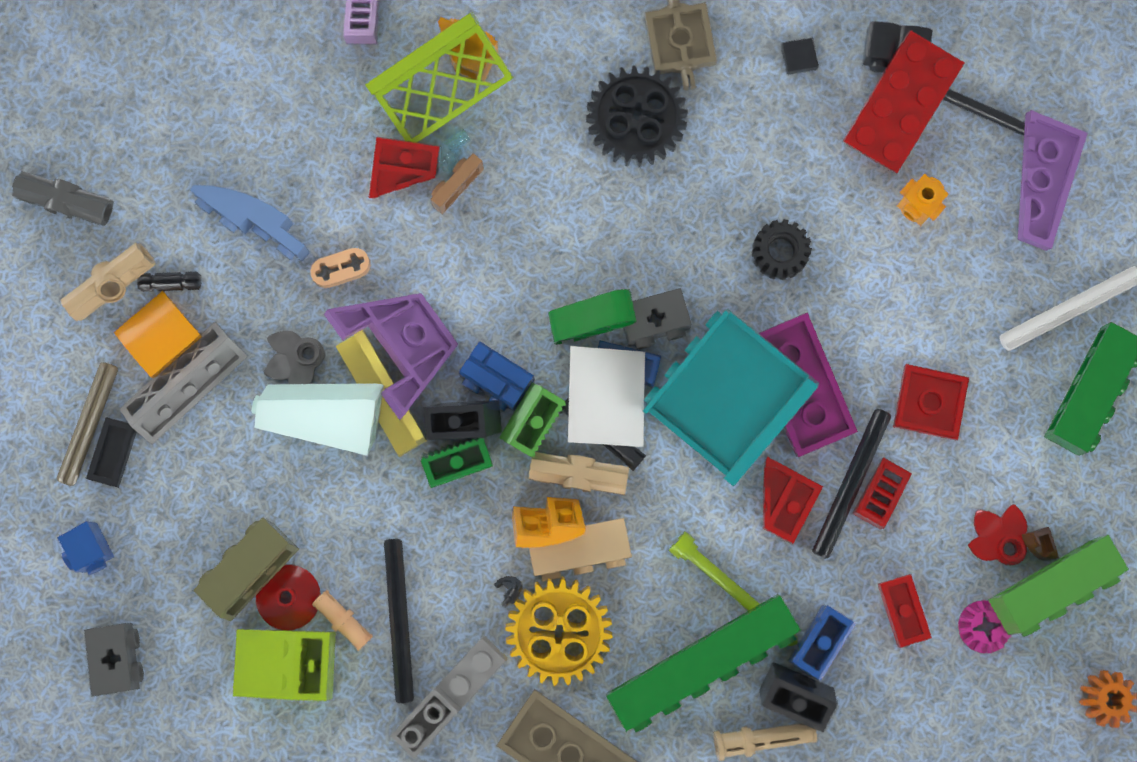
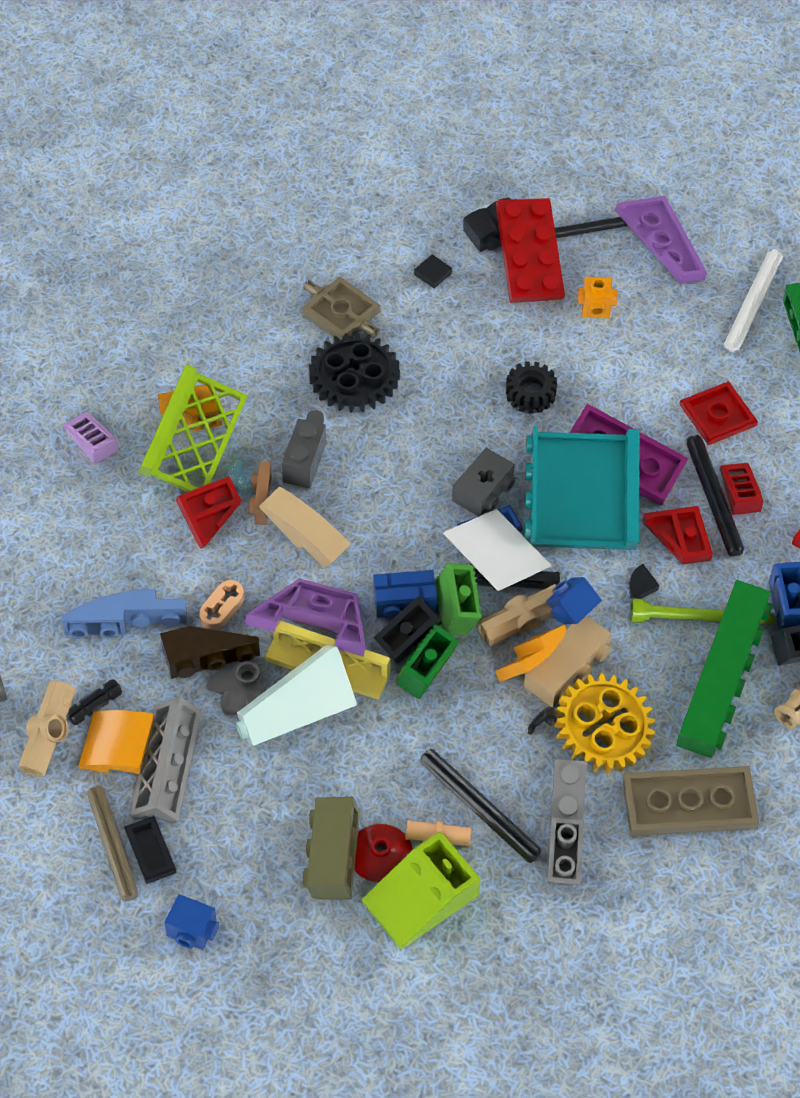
camera: 40 degrees left, 25 degrees down
(110, 641) = (288, 1005): dark grey brick -> none
(277, 295) = (199, 649): none -> dark brown slope
(461, 247) = (304, 526): none -> tan slope
(527, 166) = (304, 450): none -> dark grey brick
(592, 316) = (440, 505): green beam -> none
(620, 504) = (573, 600): none -> blue brick
(709, 520) = (642, 583): none -> black tile

